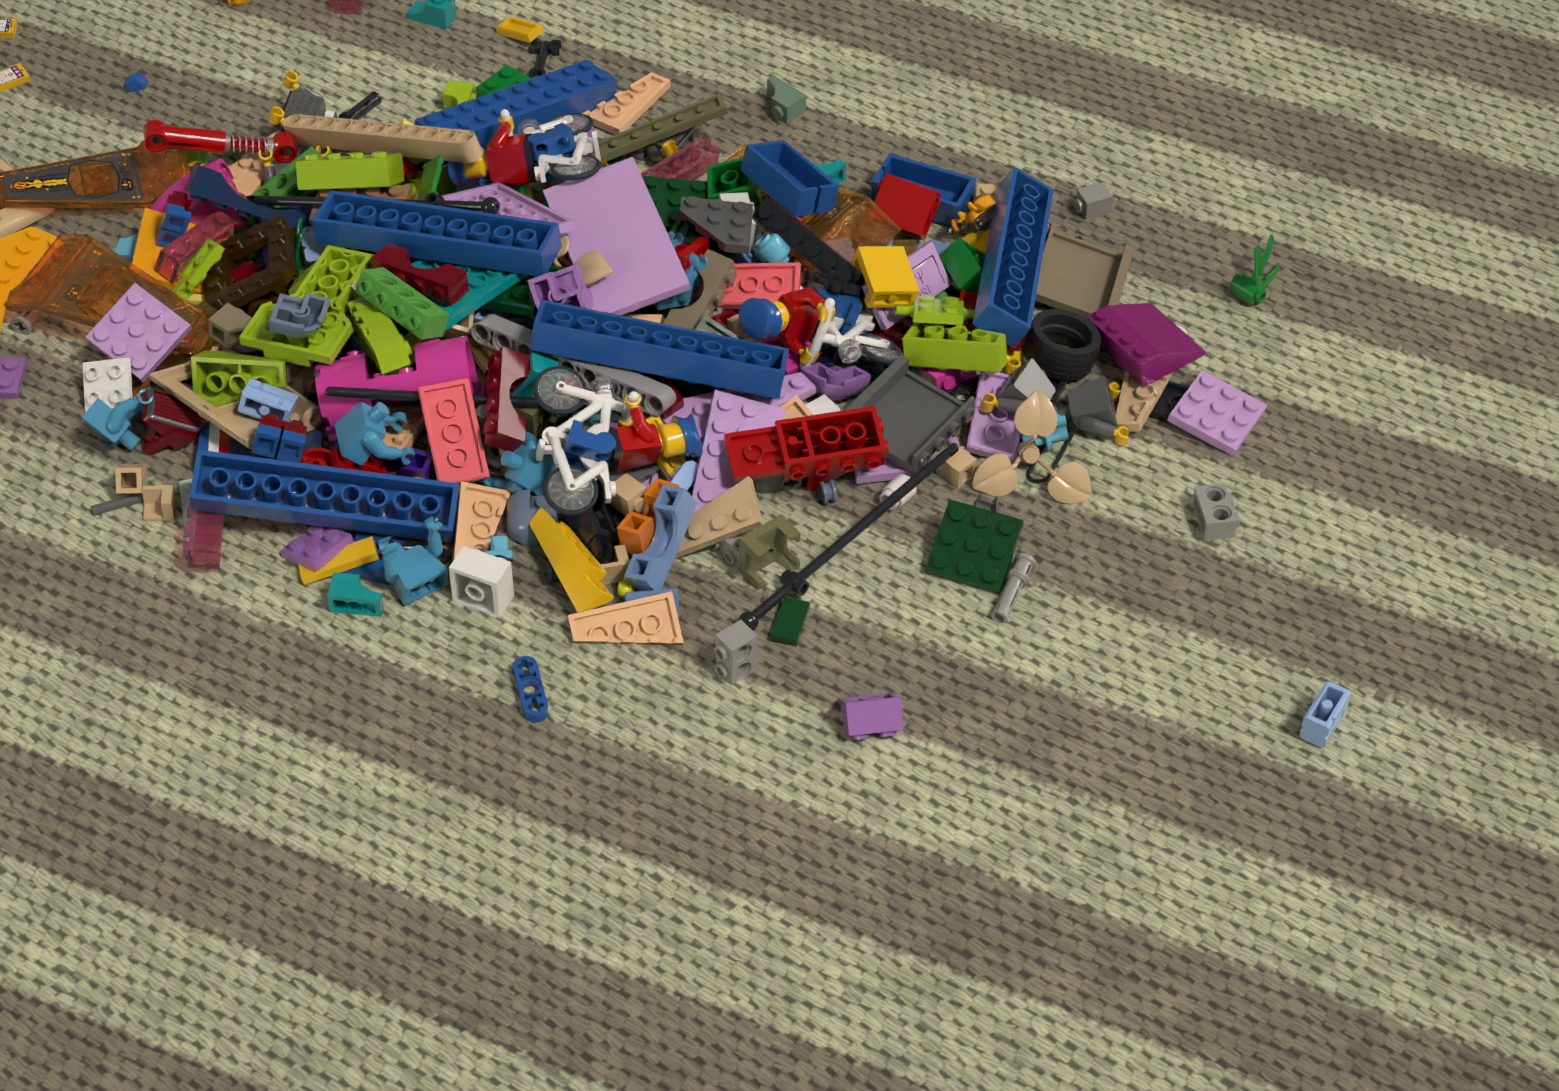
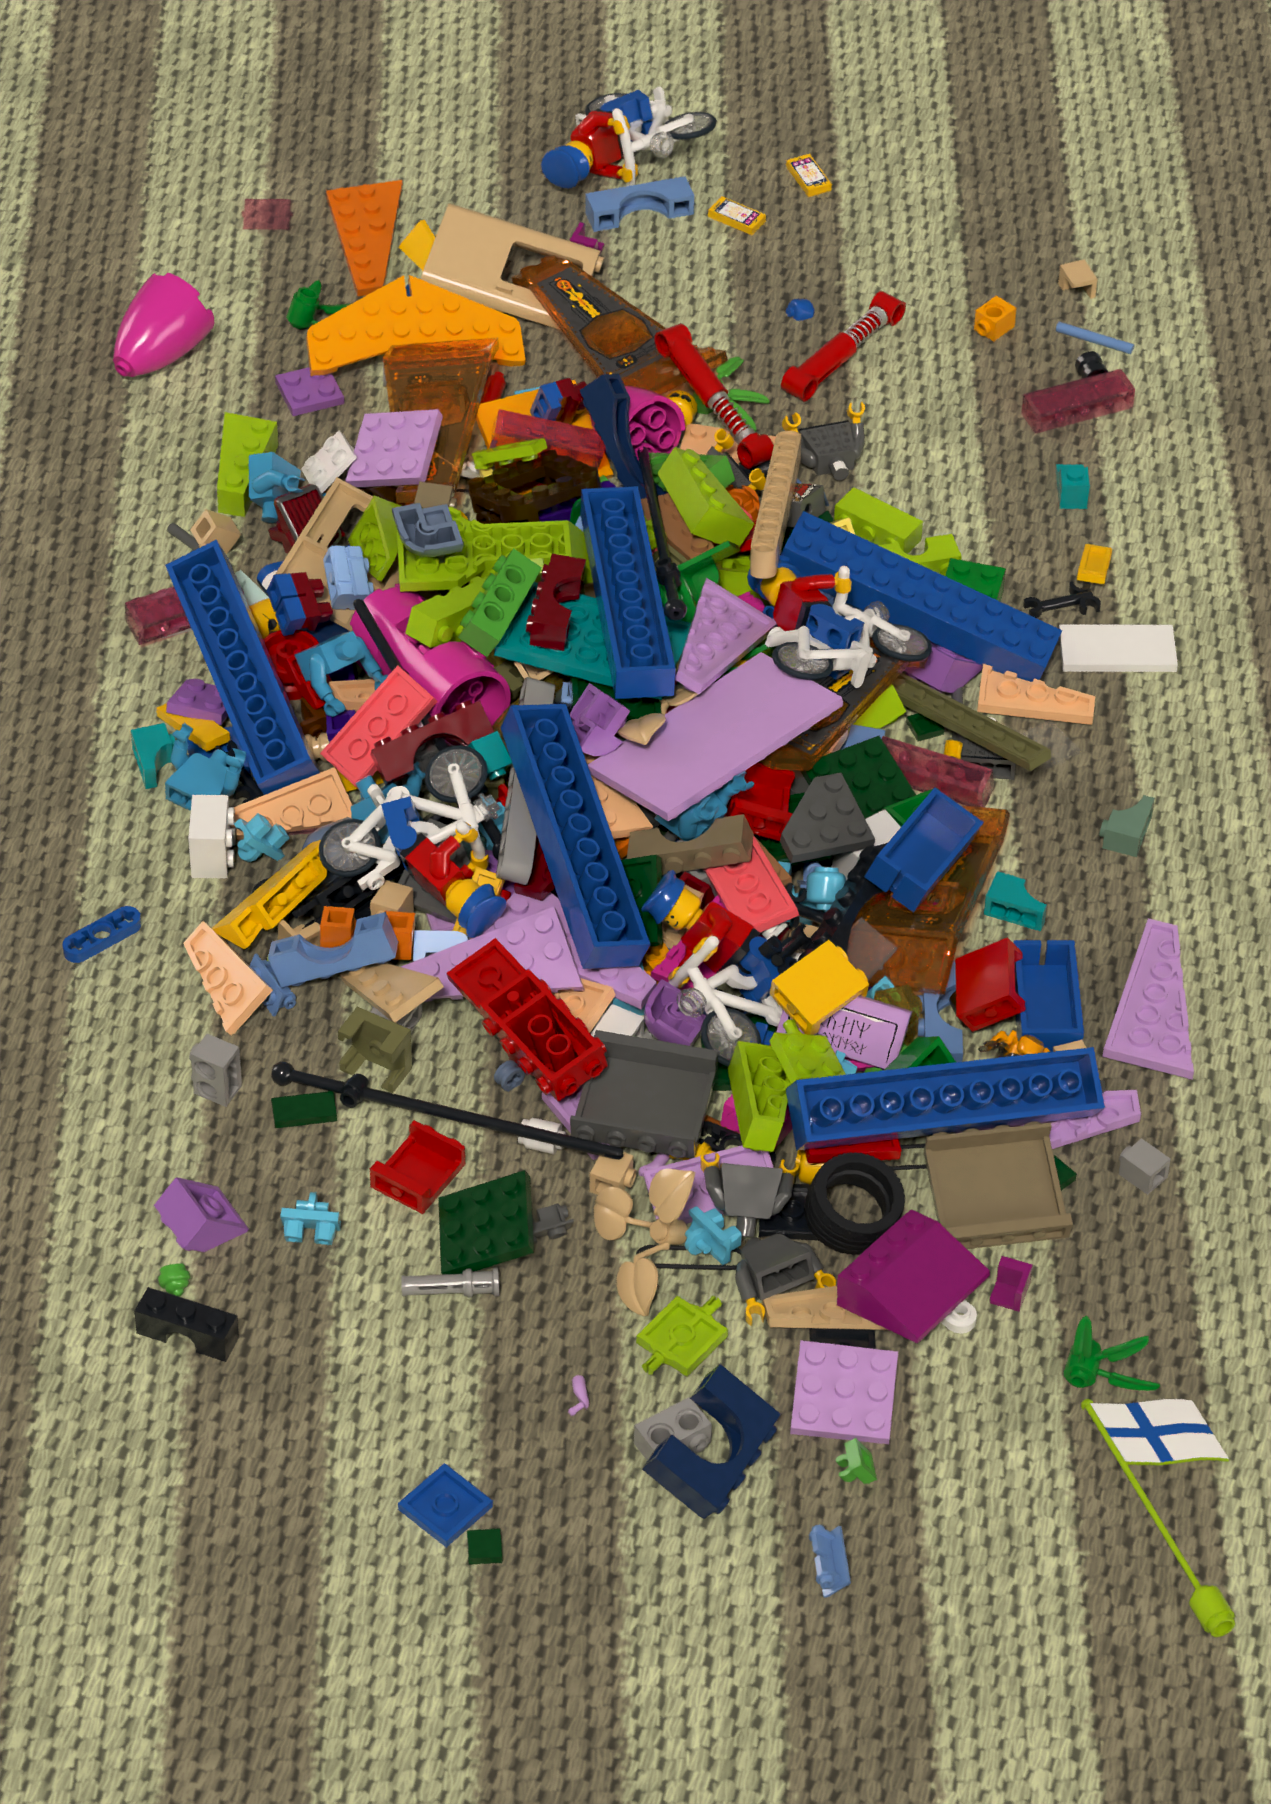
camera: 65 degrees right, 0 degrees up
(59, 439) = (241, 438): none -> lime wedge
(218, 100) = (804, 380): none -> red piece
(369, 102) = (875, 489): black pin -> none
(407, 107) = (878, 520): none -> lime brick
(609, 44) = (1118, 648): none -> white tile
(889, 571) = (419, 1168): none -> red panel
(908, 659) = (310, 1215): none -> medium azure hips
(924, 749) = (174, 1278): none -> bright green plate
(951, 147) = (1152, 1011): none -> lavender wing
(964, 762) = (209, 1328): none -> black arch
(1125, 479) = (682, 1335): none -> lime plate
(1140, 550) = (580, 1391): none -> lavender piece
(1164, 297) = (1011, 1283): none -> magenta panel
(1217, 659) = (445, 1505): none -> blue tile
(1263, 503) = (747, 1423): none -> dark blue arch
(1265, 649) = (484, 1546): none -> dark green tile
(1283, 425) = (859, 1463): none -> bright green tile
(1322, 278) = (1163, 1435): none -> flag
(1325, 714) = (394, 1622): light blue brick -> none
(1360, 469) = (830, 1559): none -> medium blue hinge

